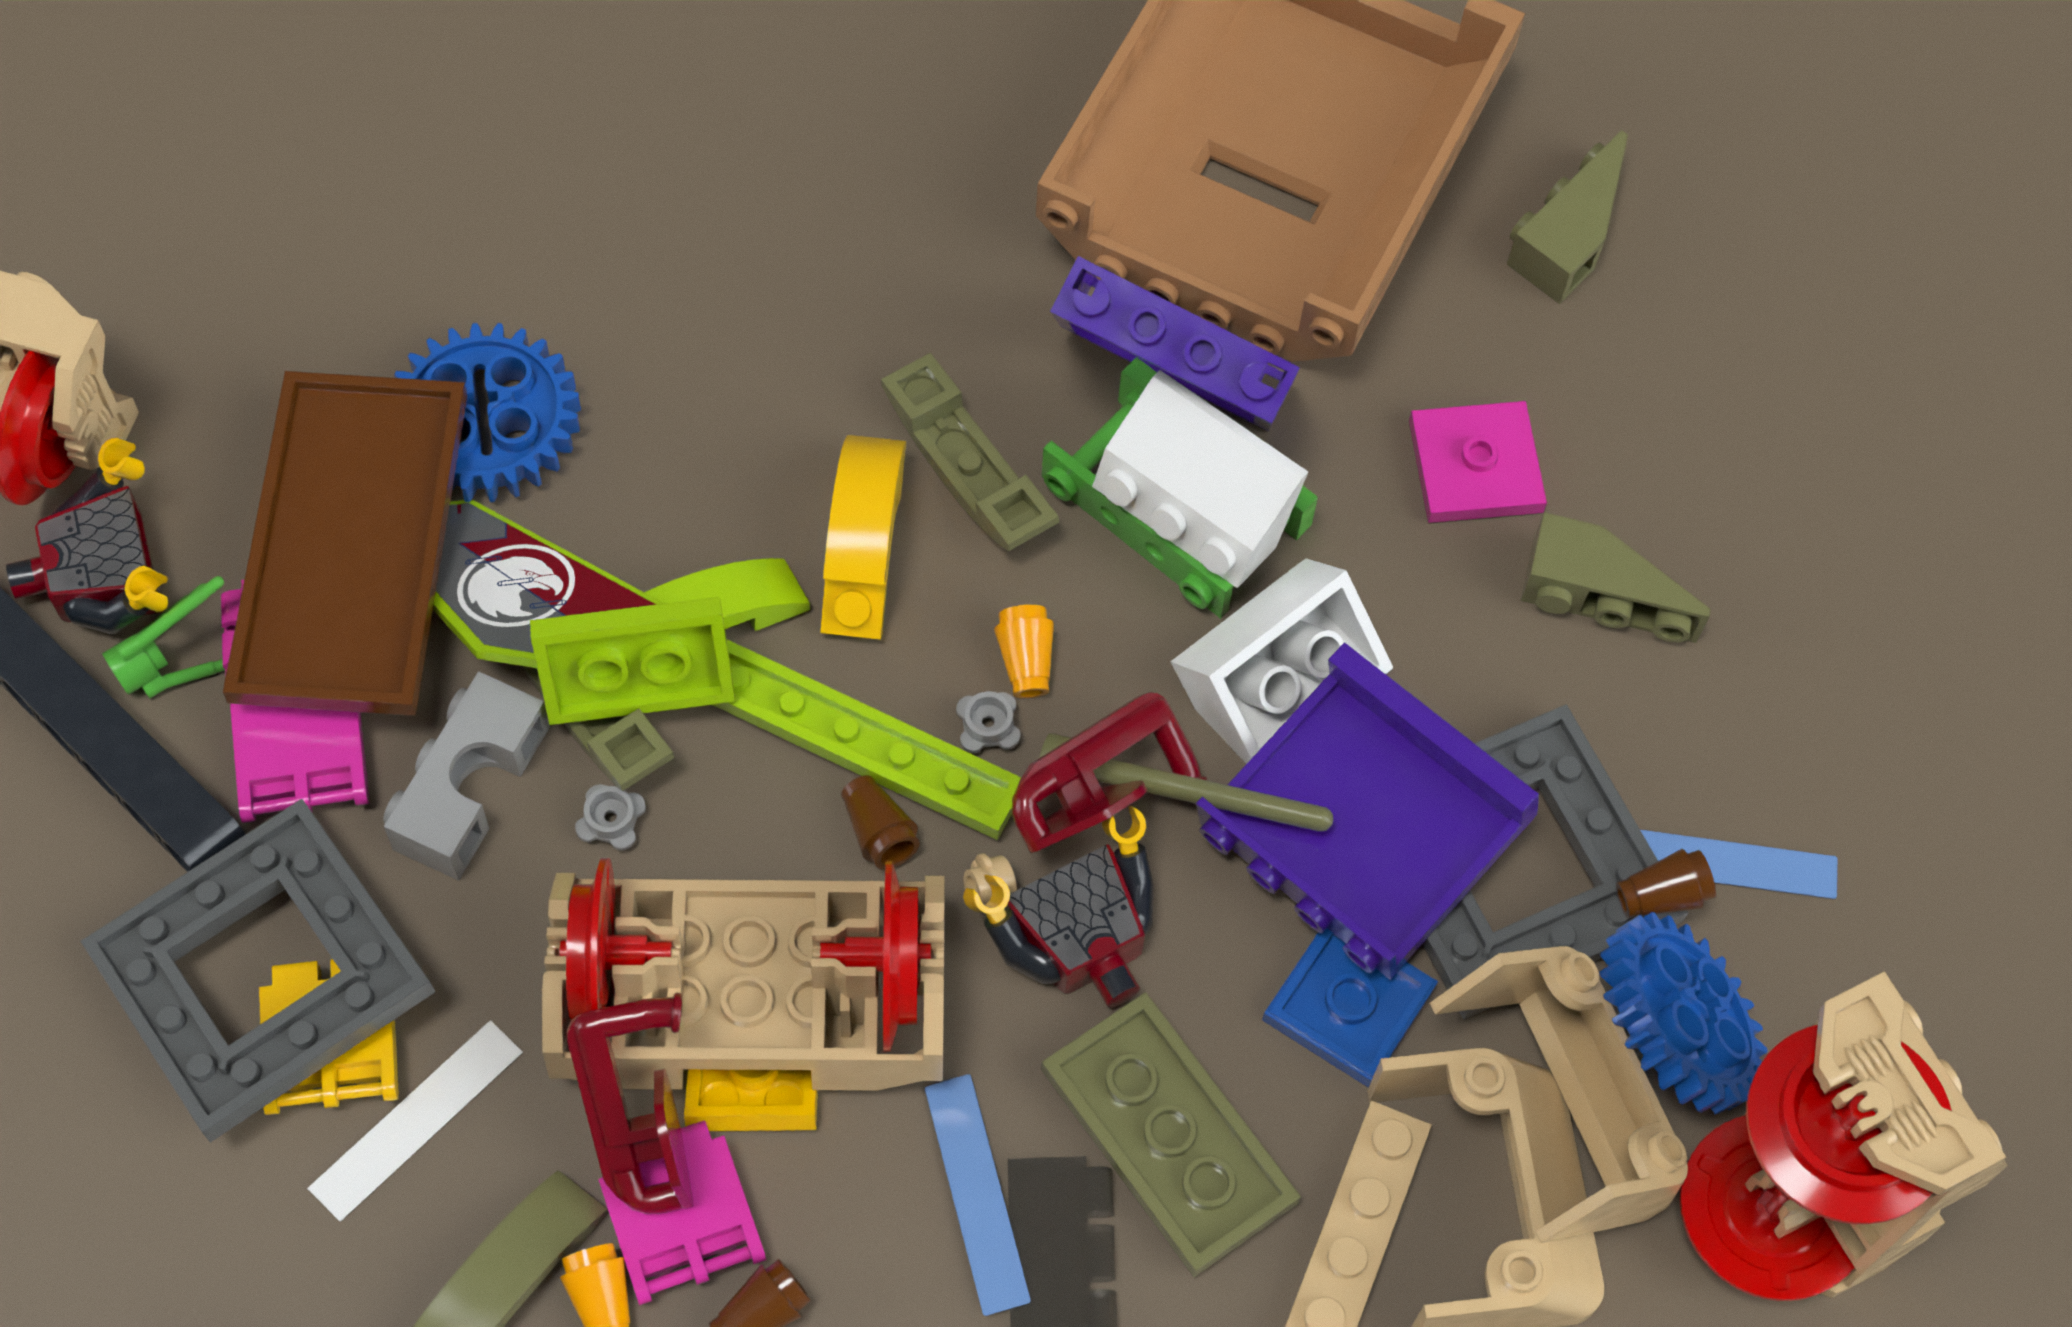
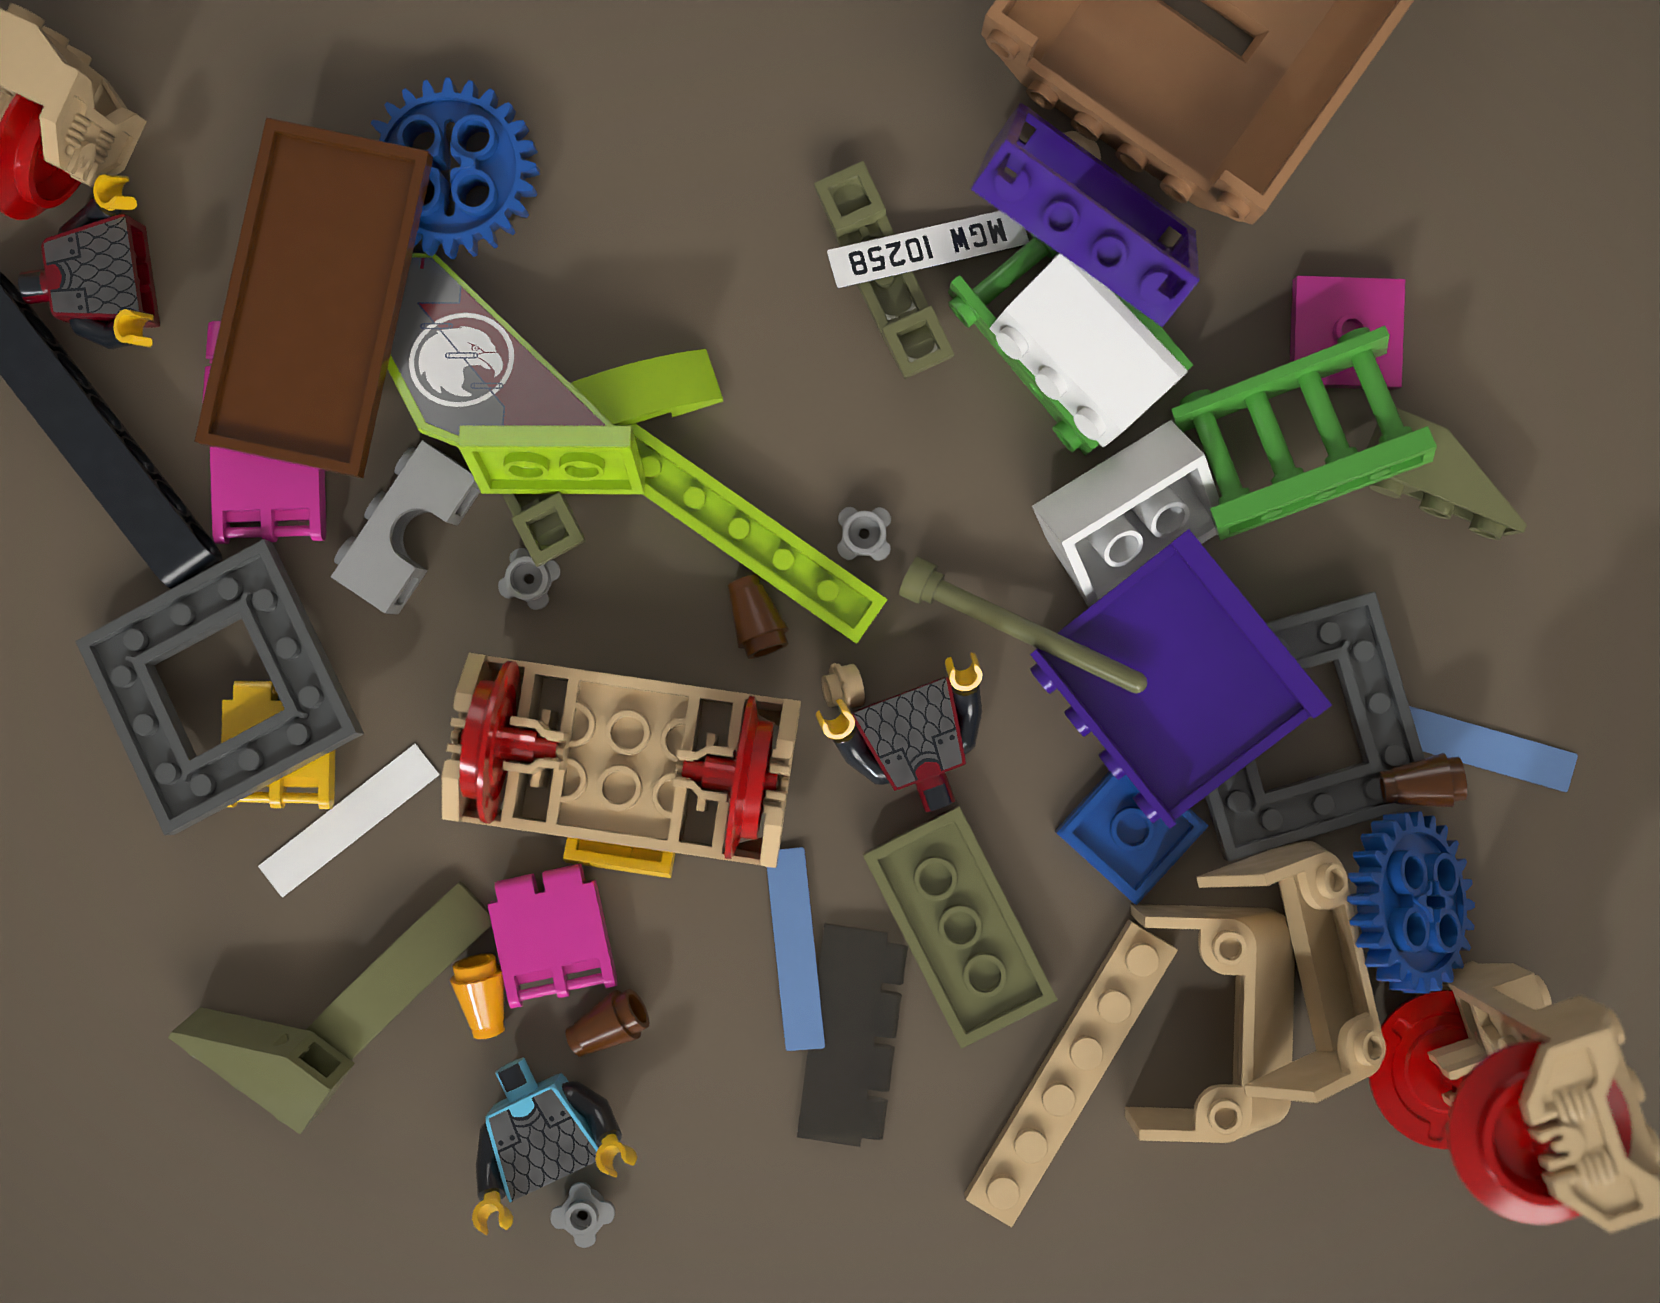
camera: 15 degrees right, 25 degrees up
(139, 658) = (136, 376): bright green plant -> none
(617, 1138) = (507, 898): dark red piece -> none
(861, 535) = (776, 338): yellow arch -> none
(1011, 430) = (925, 248): none -> white sticker
(1026, 648) = (907, 471): light orange cone -> none
(1071, 776) = (928, 636): dark red piece -> none
(1475, 590) = (1345, 467): none -> bright green fence
(1567, 235) = (1493, 103): olive slope -> none

